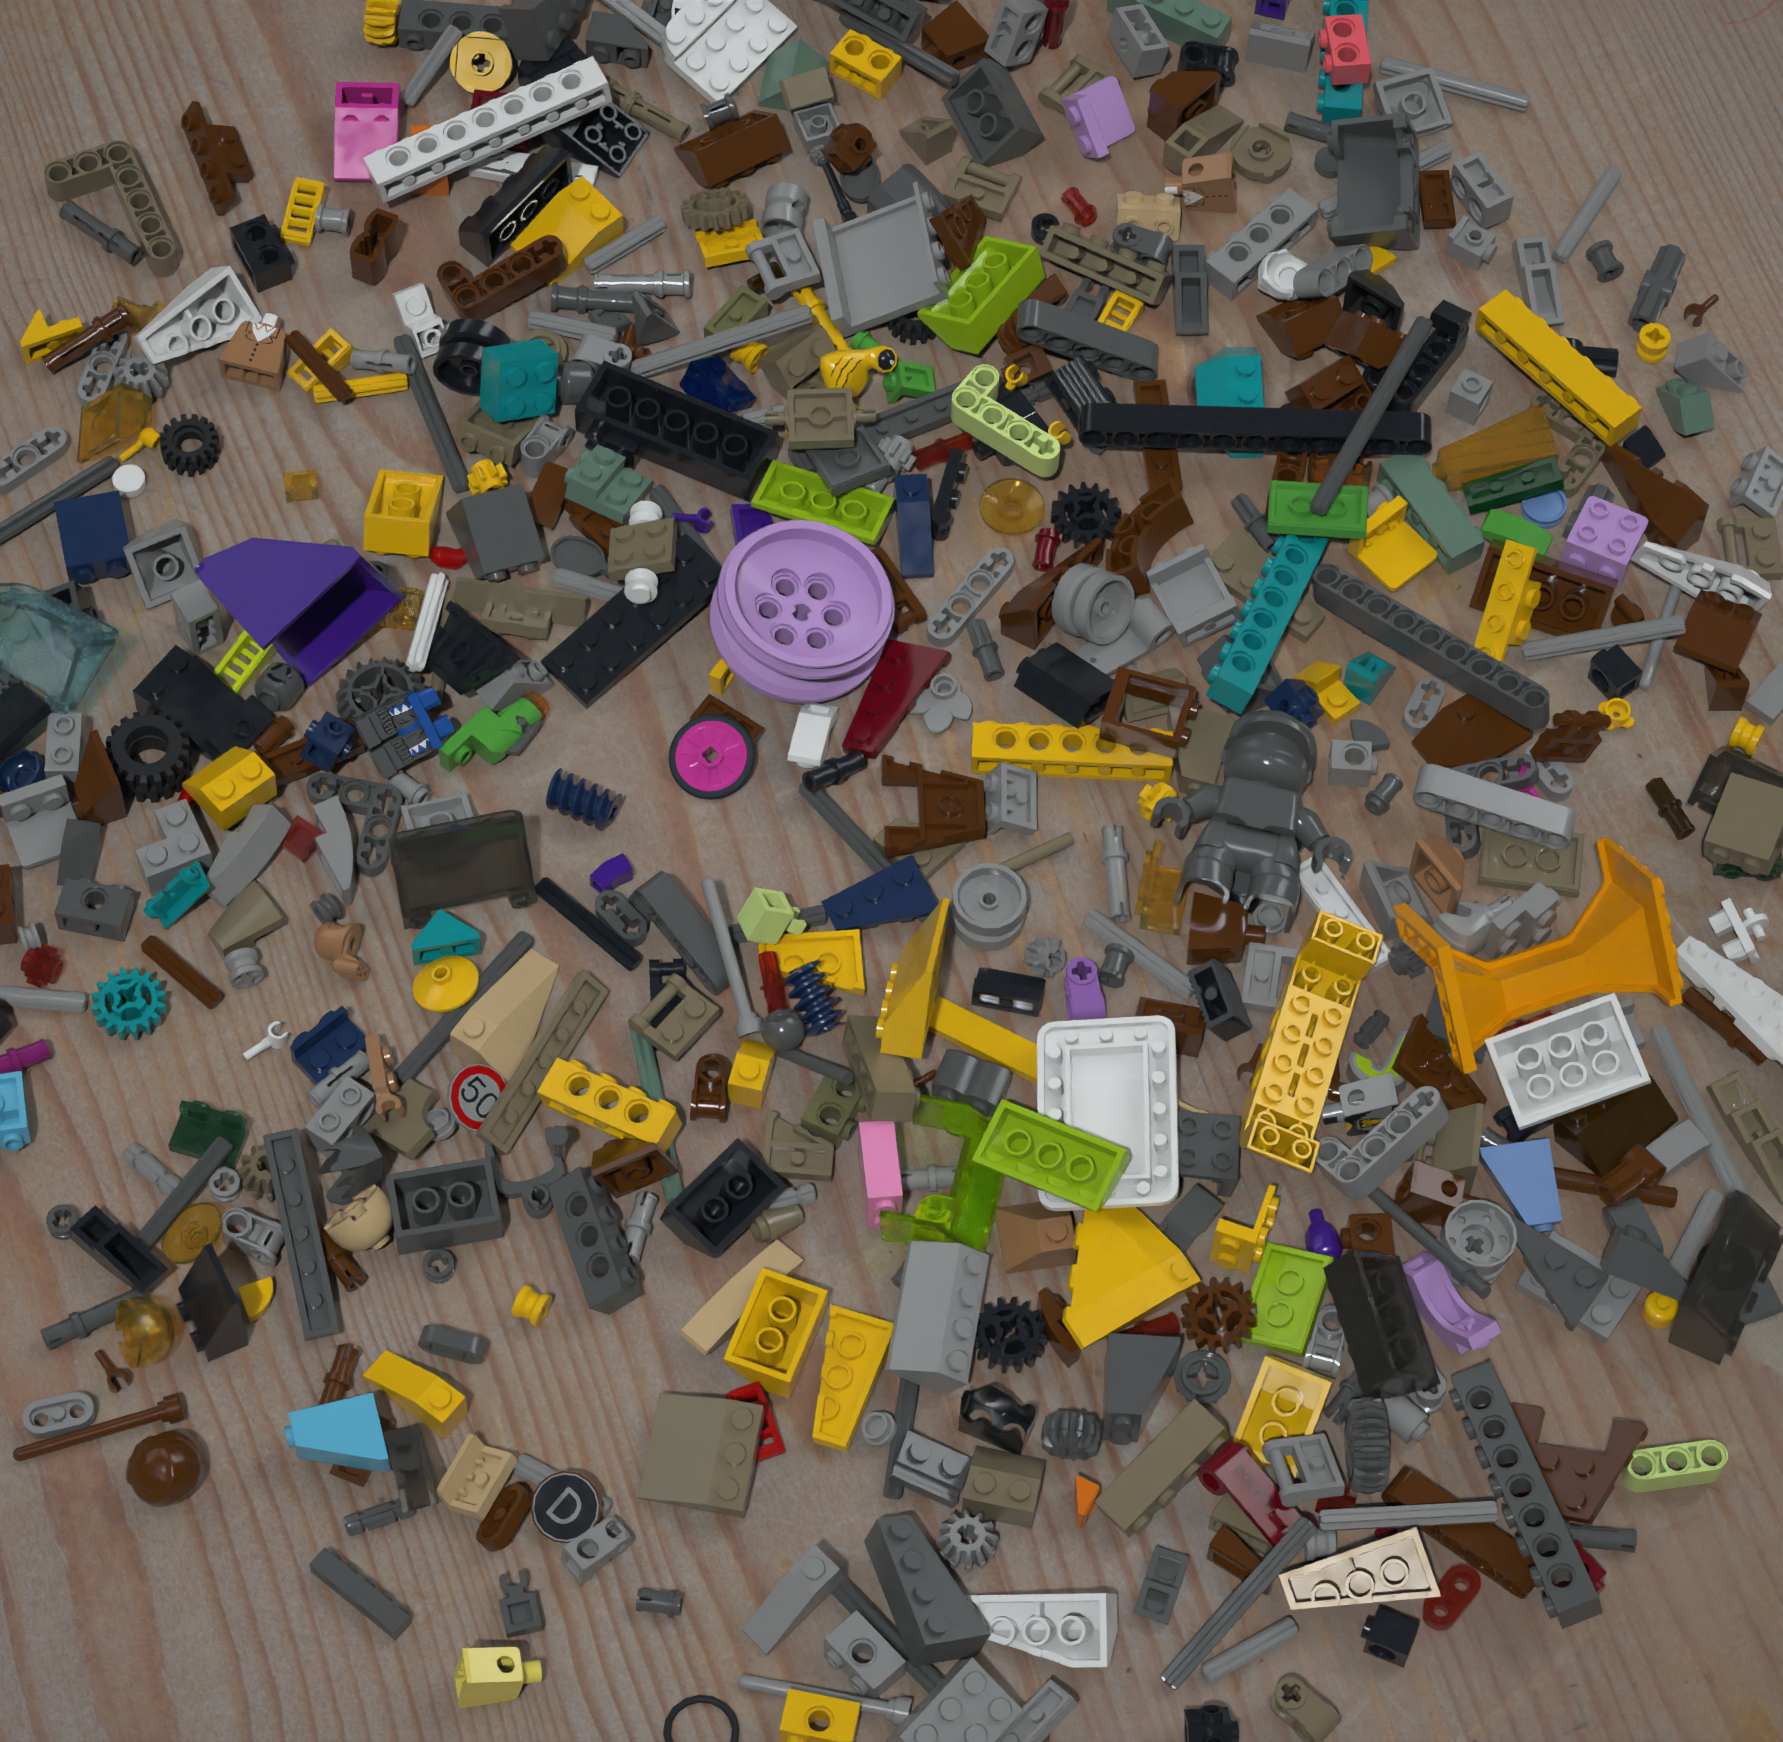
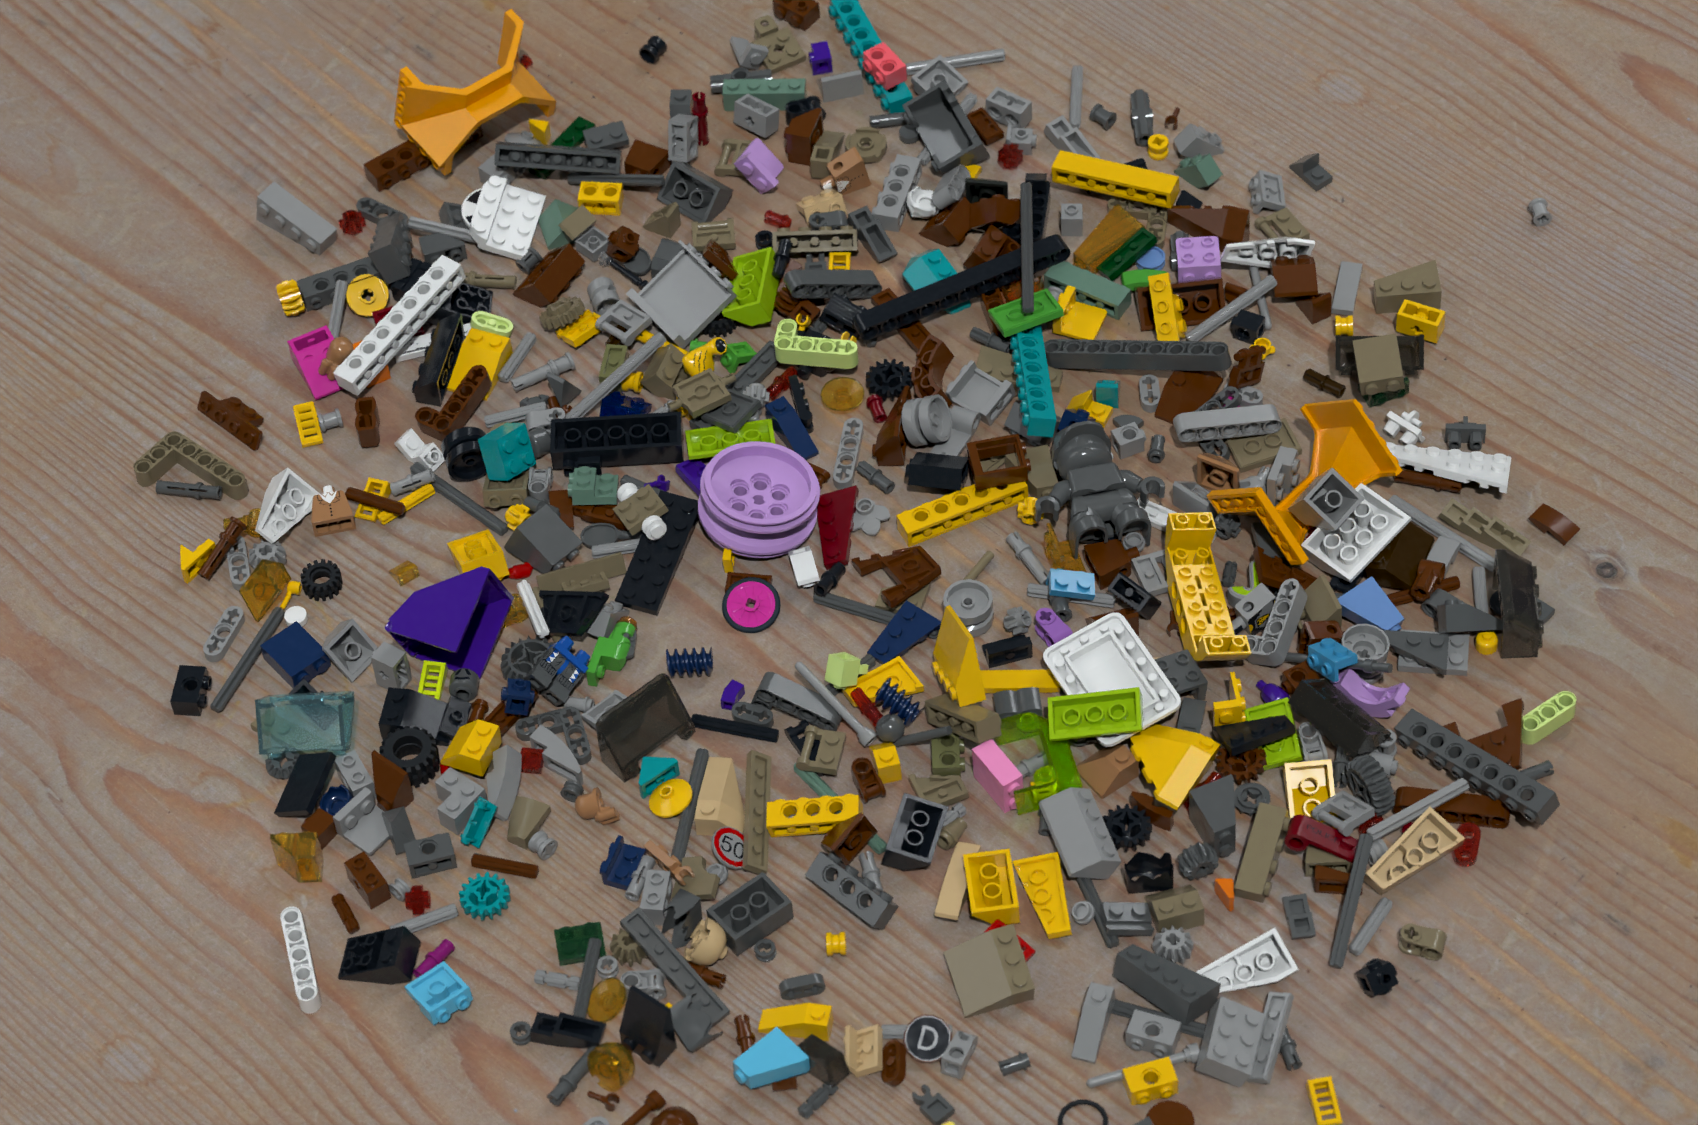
camera: 20 degrees left, 10 degrees down
(258, 254) = (297, 456): black brick -> none
(270, 1041) = (583, 877): white hand -> none
(271, 1326) = (692, 1024): none -> dark grey piece
(387, 130) = (336, 353): none -> medium nougat piece
(518, 474) = (535, 505): none -> dark grey axle
(537, 1187) = (799, 883): dark grey piece -> none
(583, 299) = (511, 396): dark grey pin -> none
(617, 182) = (491, 323): none -> yellowish green plate
(1010, 799) = (943, 547): light grey bracket -> none
(1042, 270) = (782, 258): none -> black axle
(1144, 940) = (1071, 584): none -> dark azure bracket
(1252, 1288) = (1252, 734): none -> black wing
(1389, 1637) = (1446, 880): black brick -> none
(1419, 1232) = (1330, 656): none -> dark azure bracket
(1443, 261) = (1010, 155): none -> clear red gear
(1549, 999) = (1326, 501): none -> light grey slope

